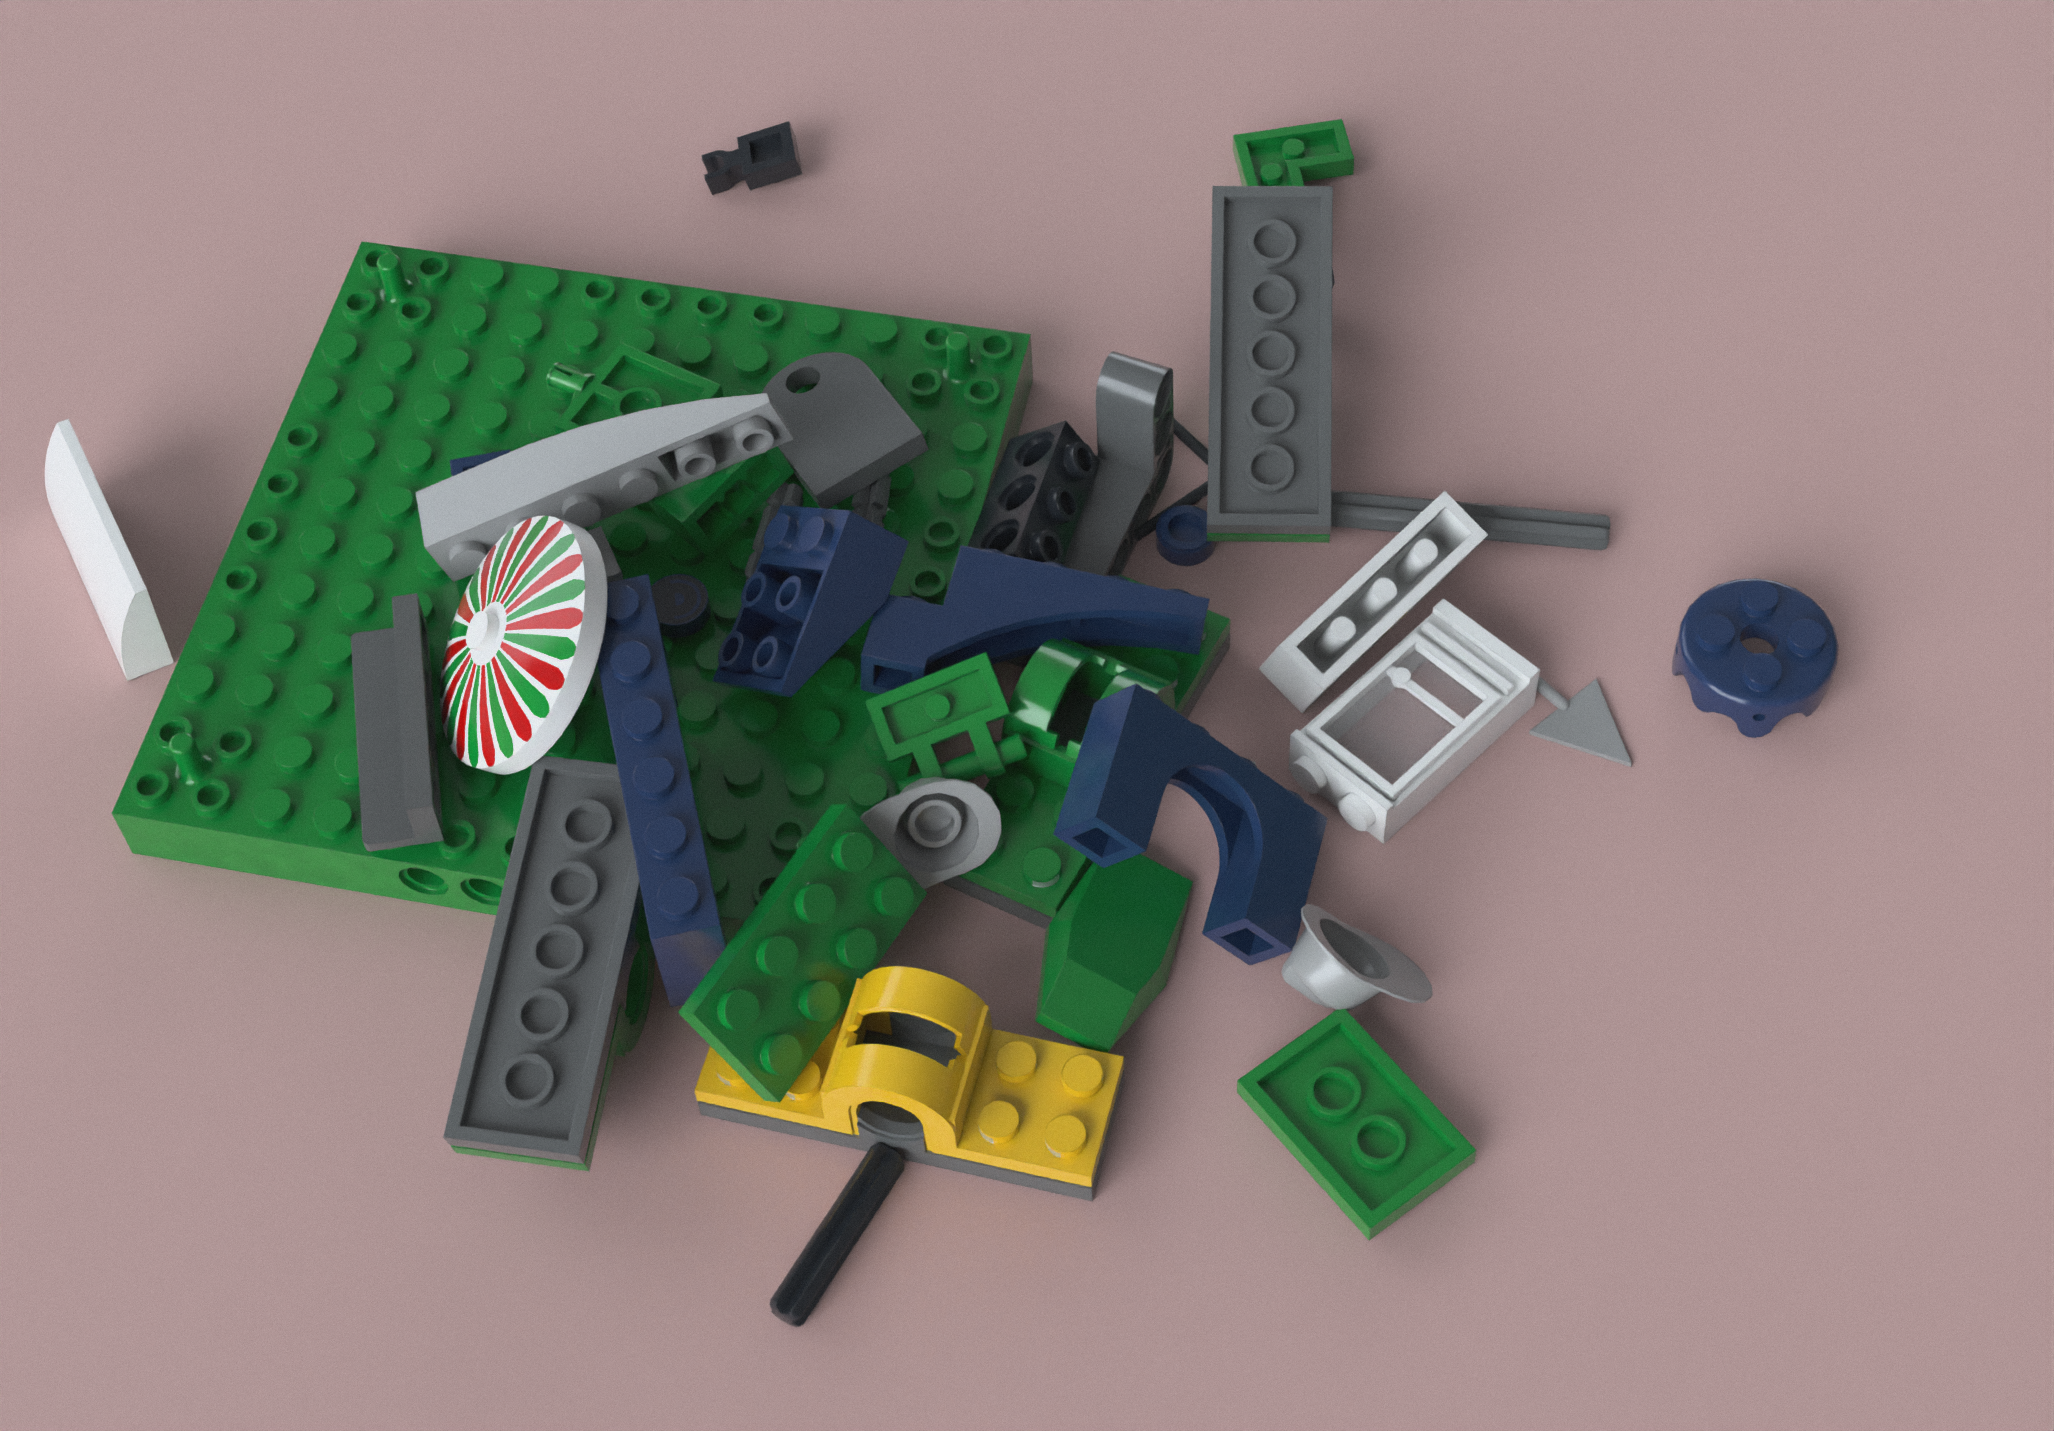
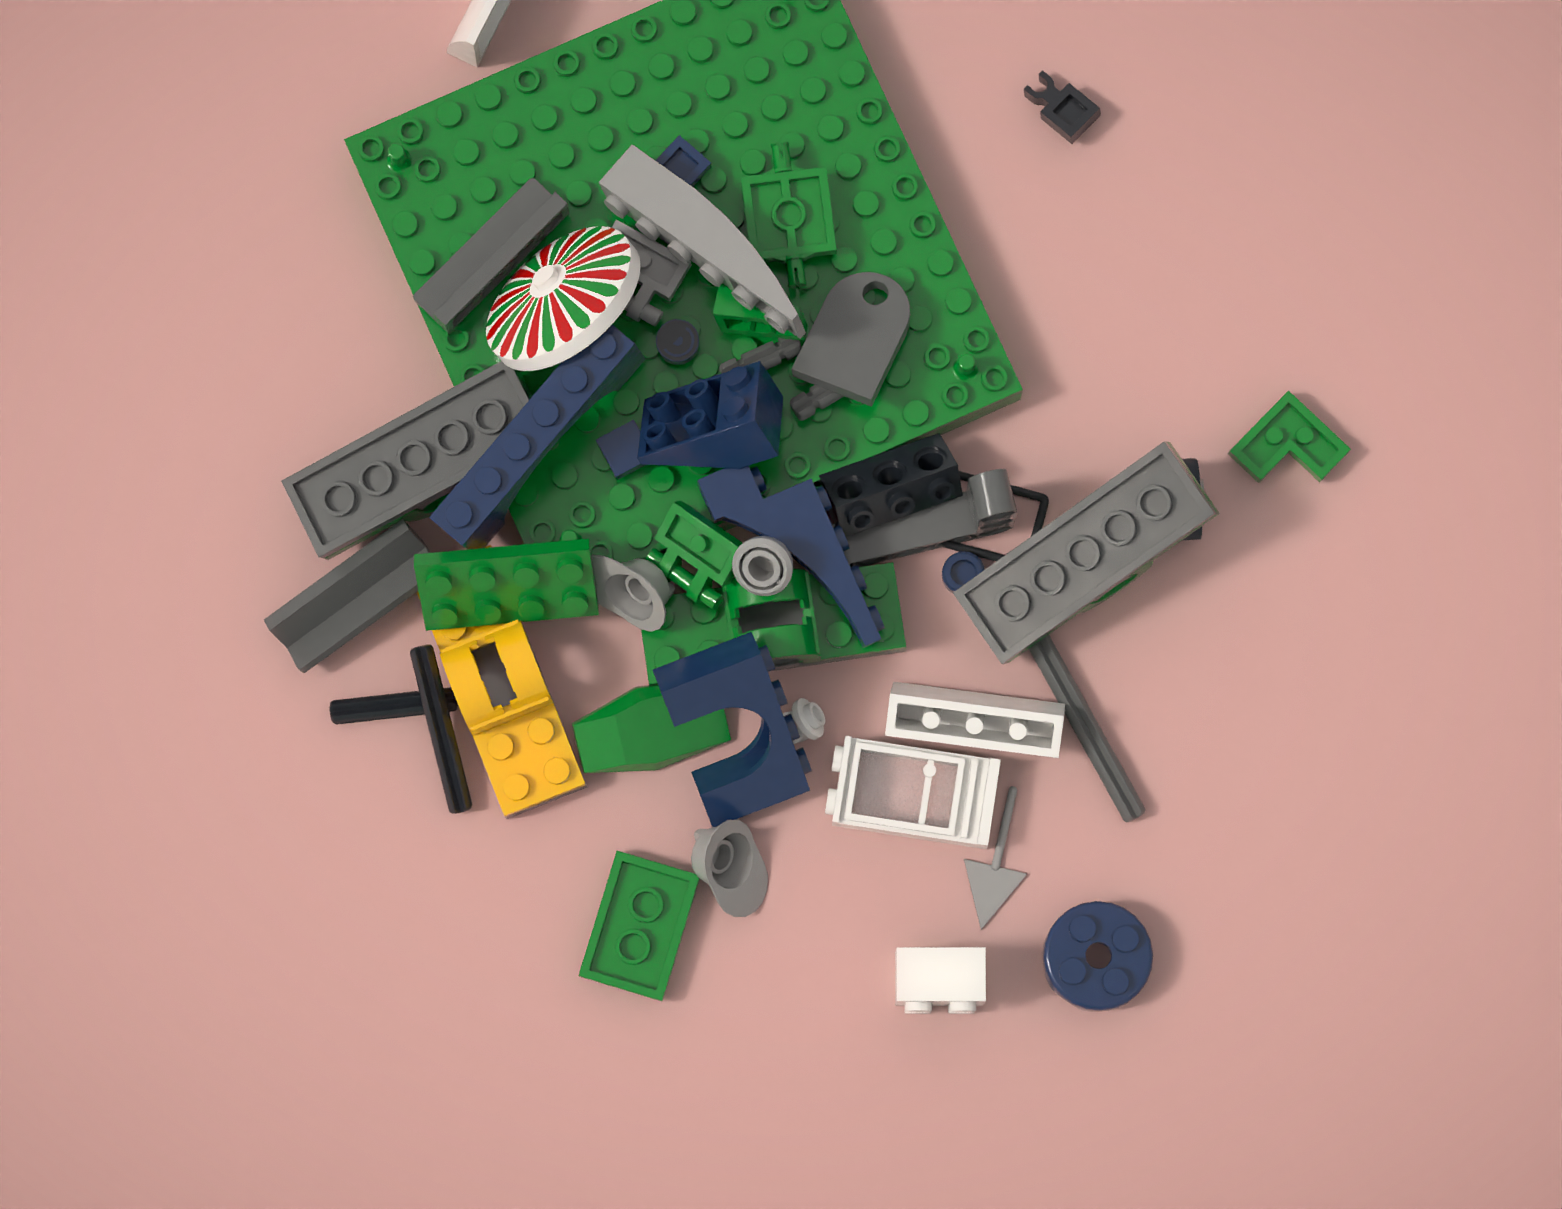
camera: 55 degrees right, 25 degrees up
(660, 1177) = (349, 597): none -> dark grey panel
(754, 733) = (621, 449): none -> dark blue tile
(917, 1184) = (441, 728): none -> black axle
(1026, 637) = (763, 565): none -> light grey brick
(1673, 812) = (940, 978): none -> white brick

